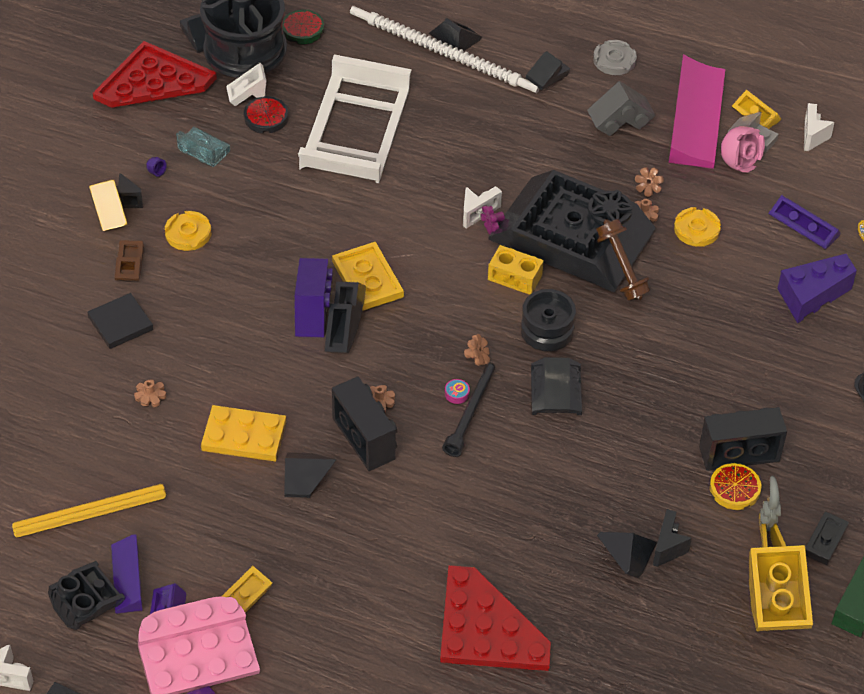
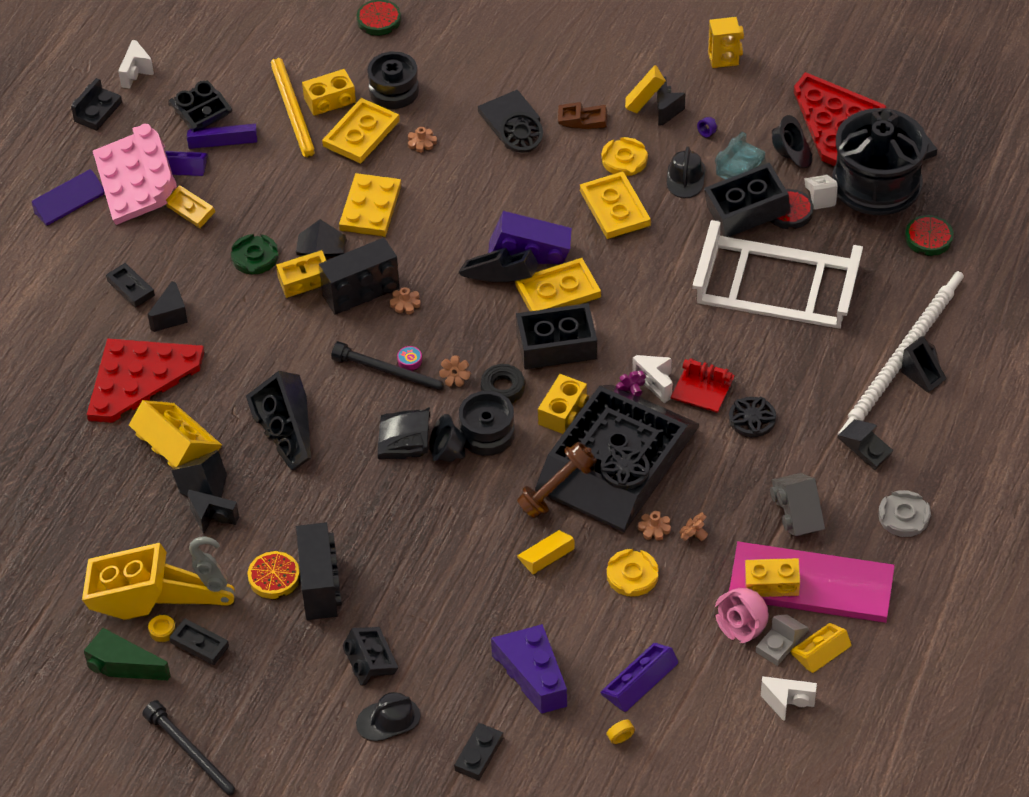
camera: 95 degrees right, 0 degrees up
(51, 143) = (724, 42): none -> yellow brick
(67, 412) = (393, 80): none -> black wheel
(76, 473) = (329, 92): none -> yellow brick
(136, 443) = (360, 130): none -> yellow plate
(153, 306) = (521, 132): none -> black wheel
(184, 108) = (791, 143): none -> black piece
(213, 185) = (685, 174): none -> black piece
(258, 234) = (615, 205): none -> yellow plate
(268, 131) = (747, 200): none -> black brick
(311, 532) = (254, 254): none -> dark green tile
(356, 474) = (300, 274): none -> yellow brick
(361, 642) = (130, 285): none -> black plate
(397, 598) = (168, 310): none -> black slope
(438, 270) = (556, 336): none -> black brick
(484, 174) = (702, 385): none -> red hinge
(493, 306) = (504, 371): none -> black tyre
(517, 145) = (752, 416): none -> black wheel
(540, 487) = (283, 413): none -> black wedge
(571, 345) = (446, 440): none -> black piece
(574, 579) = (172, 432): none -> yellow slope
(683, 282) = (547, 551): none -> yellow slope
(708, 124) = (773, 577): none -> yellow brick
(815, 574) = (161, 628): none -> yellow tile
(819, 405) = (369, 653): none -> black bracket

